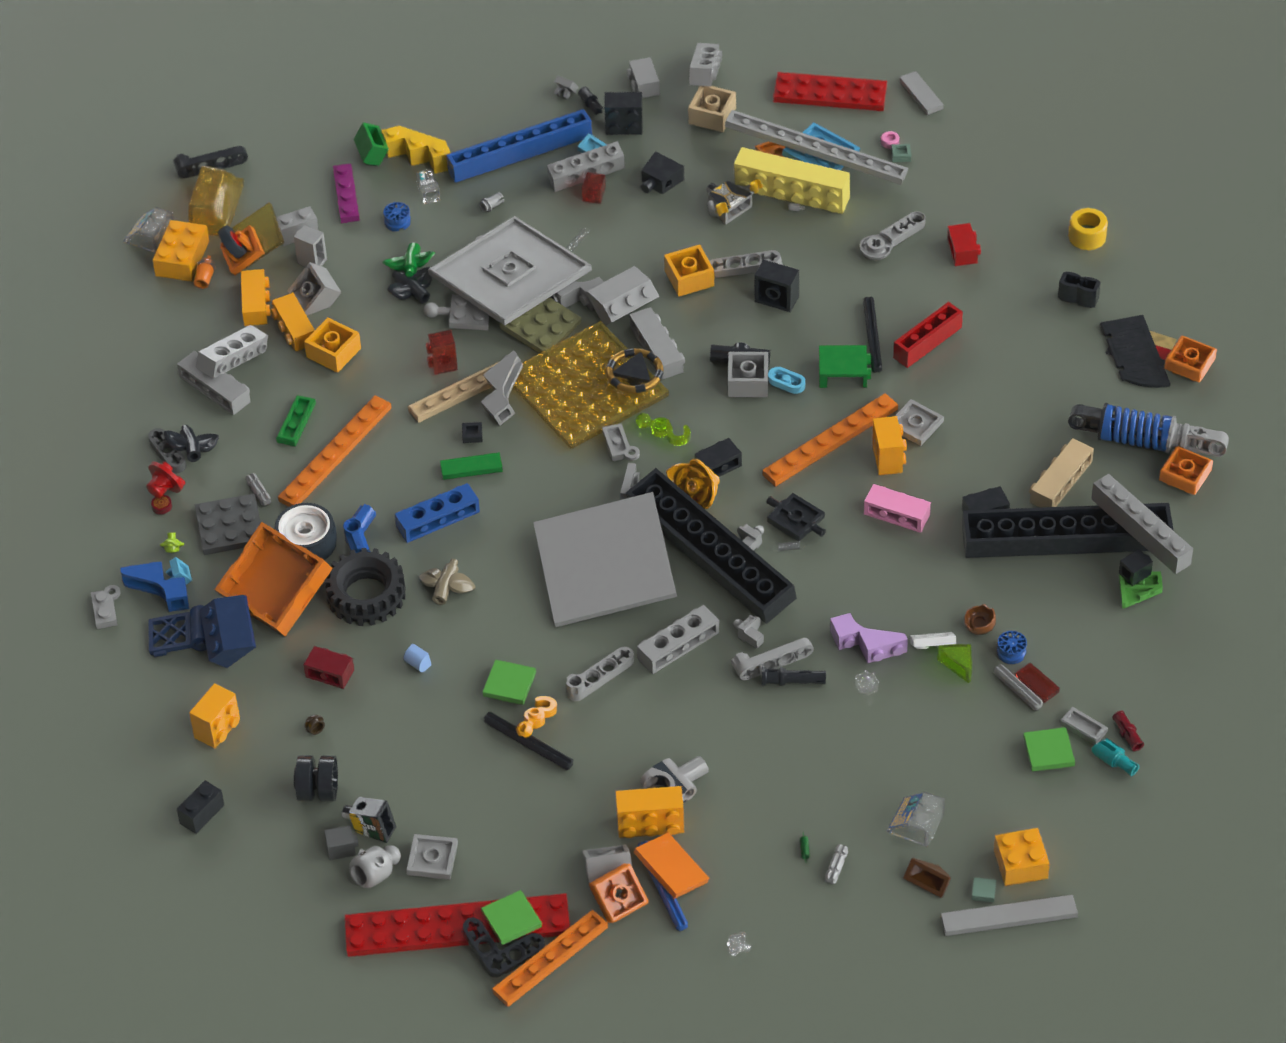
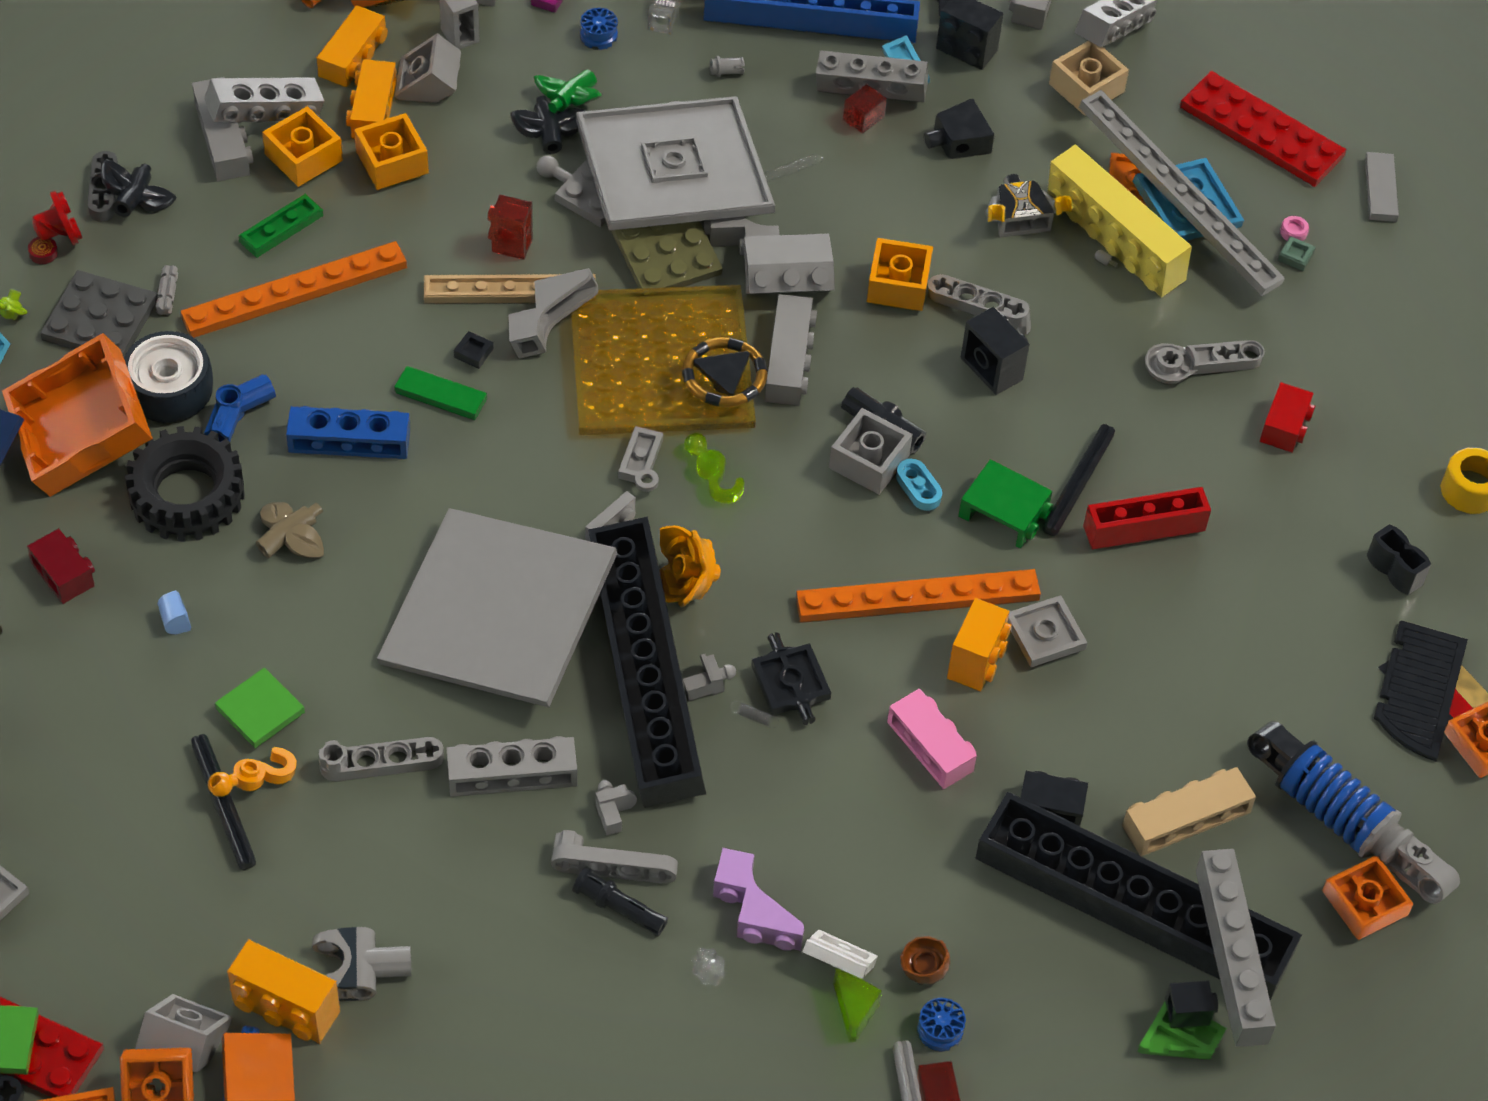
camera: 25 degrees right, 5 degrees up
(275, 367) = (302, 146): none -> light orange brick
(721, 457) = (749, 546): black brick -> none

